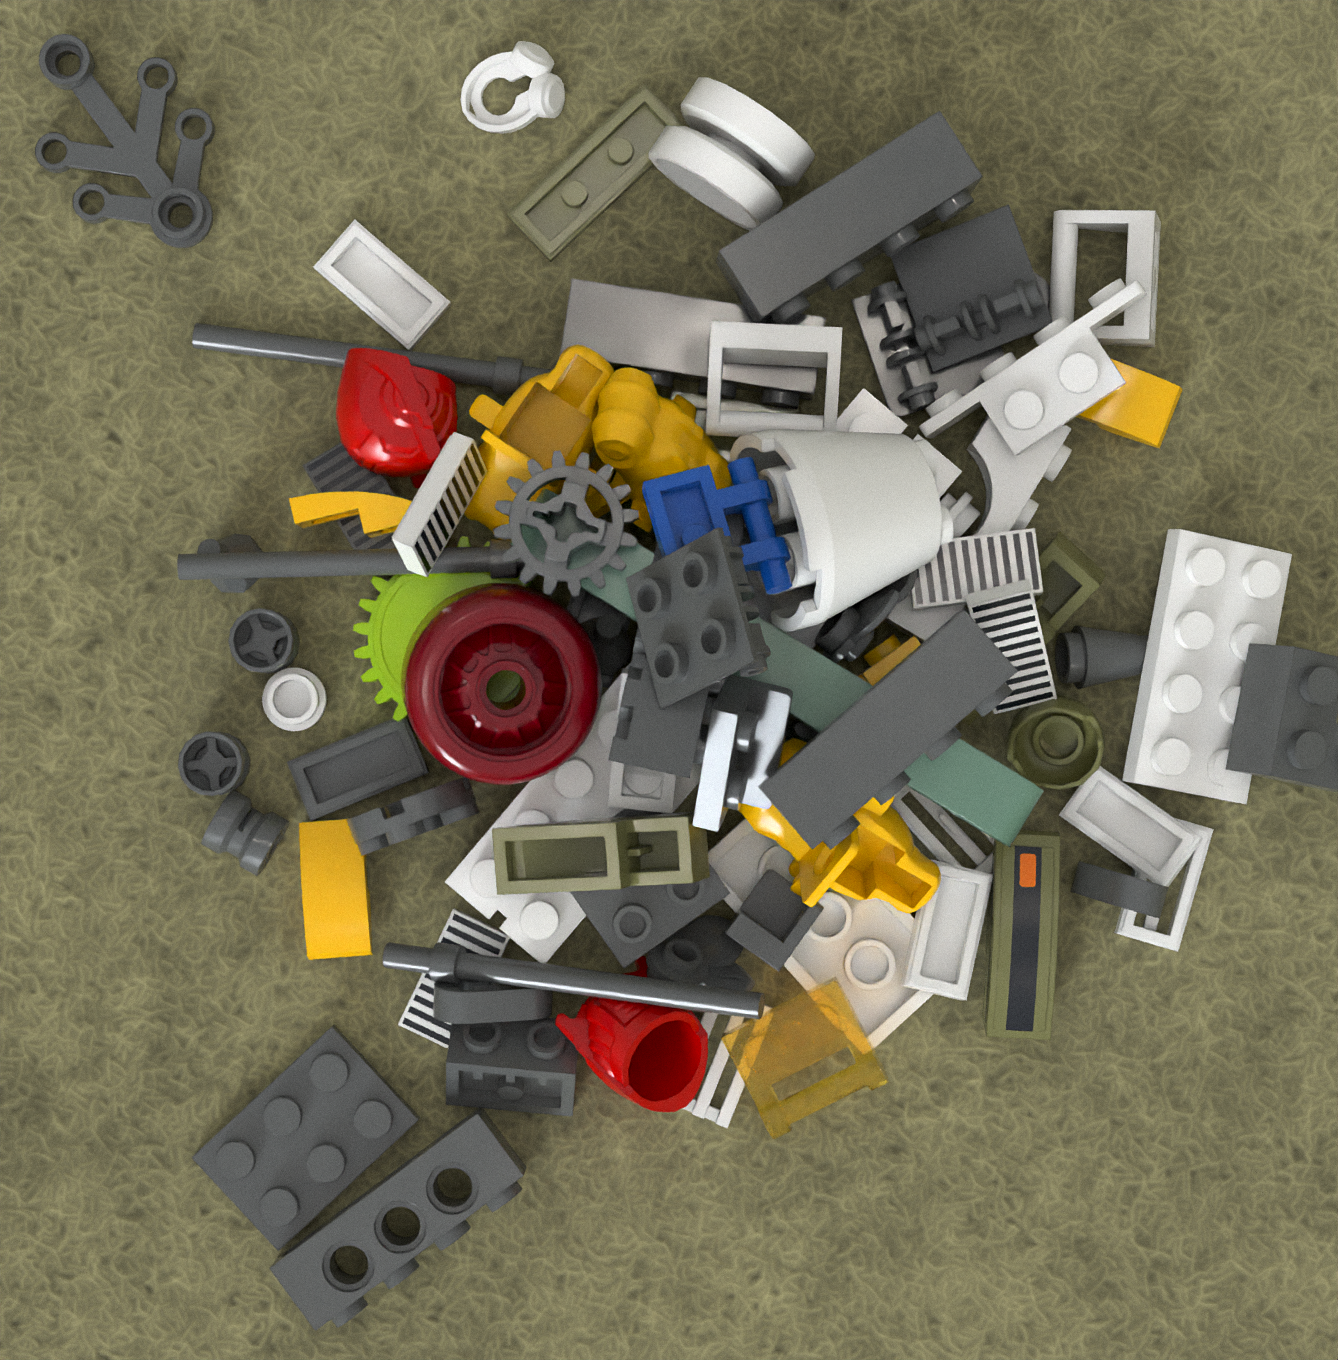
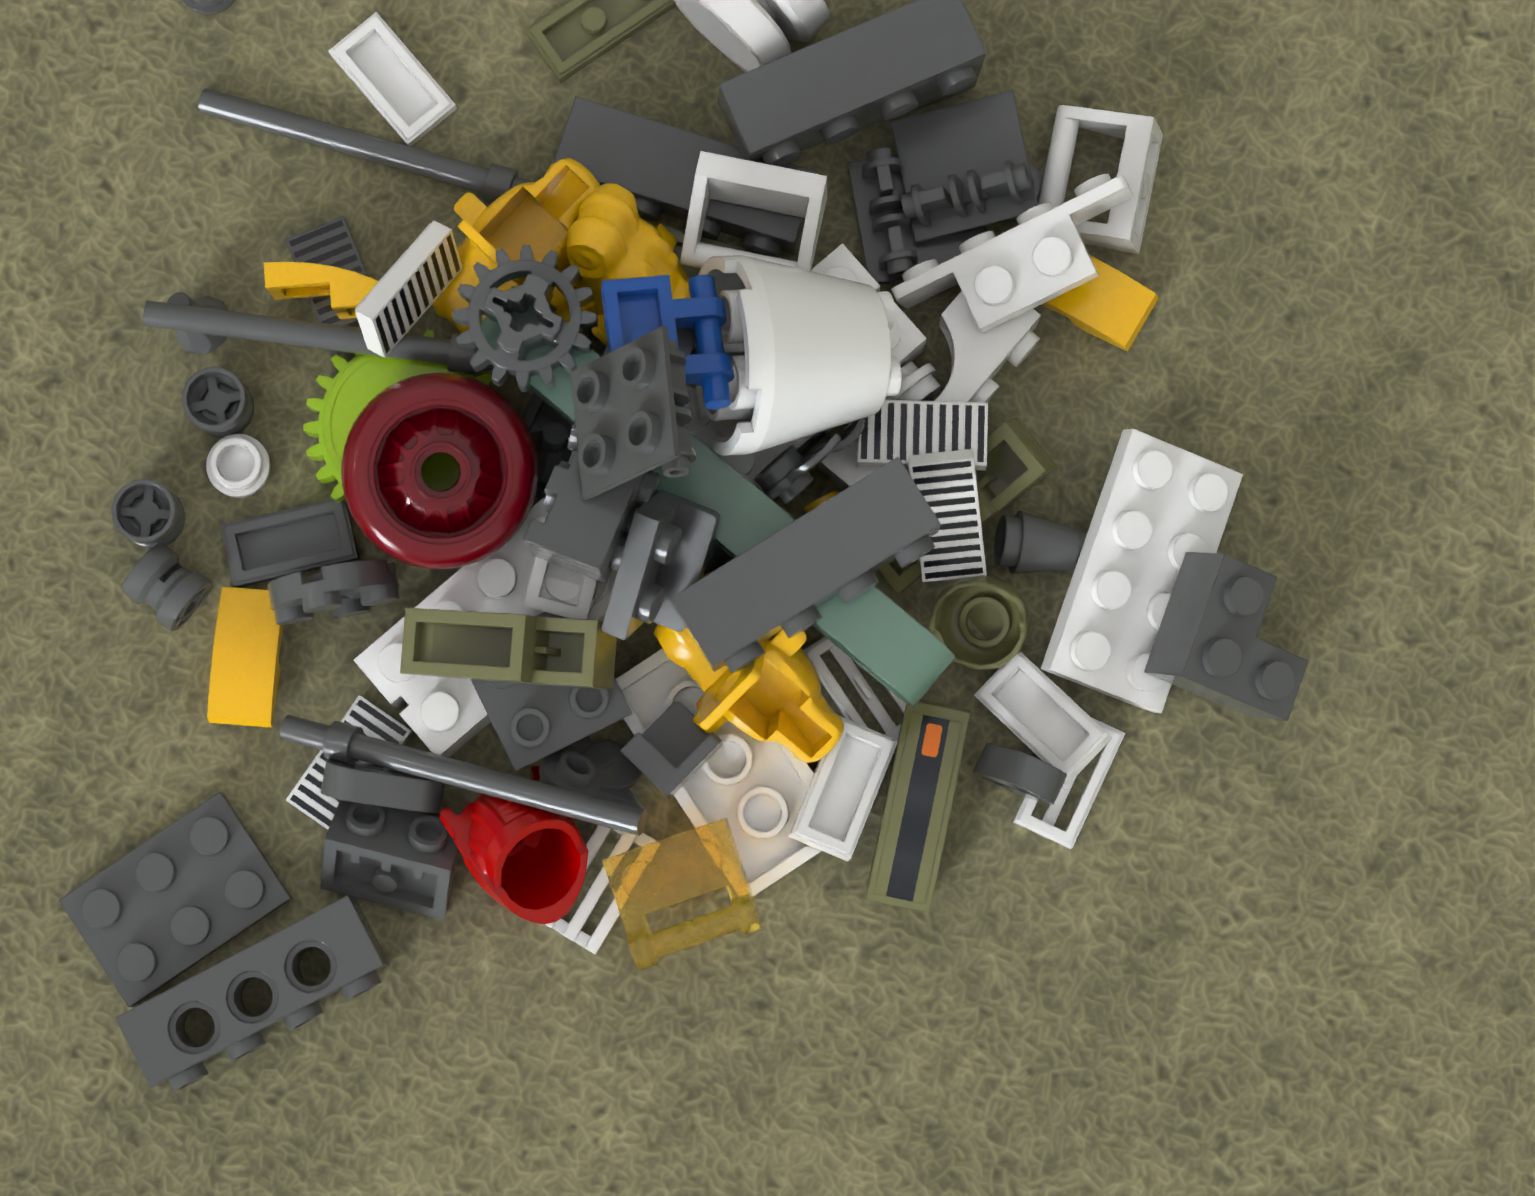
camera: 10 degrees right, 5 degrees down
(394, 413) = (380, 197): red helmet -> none

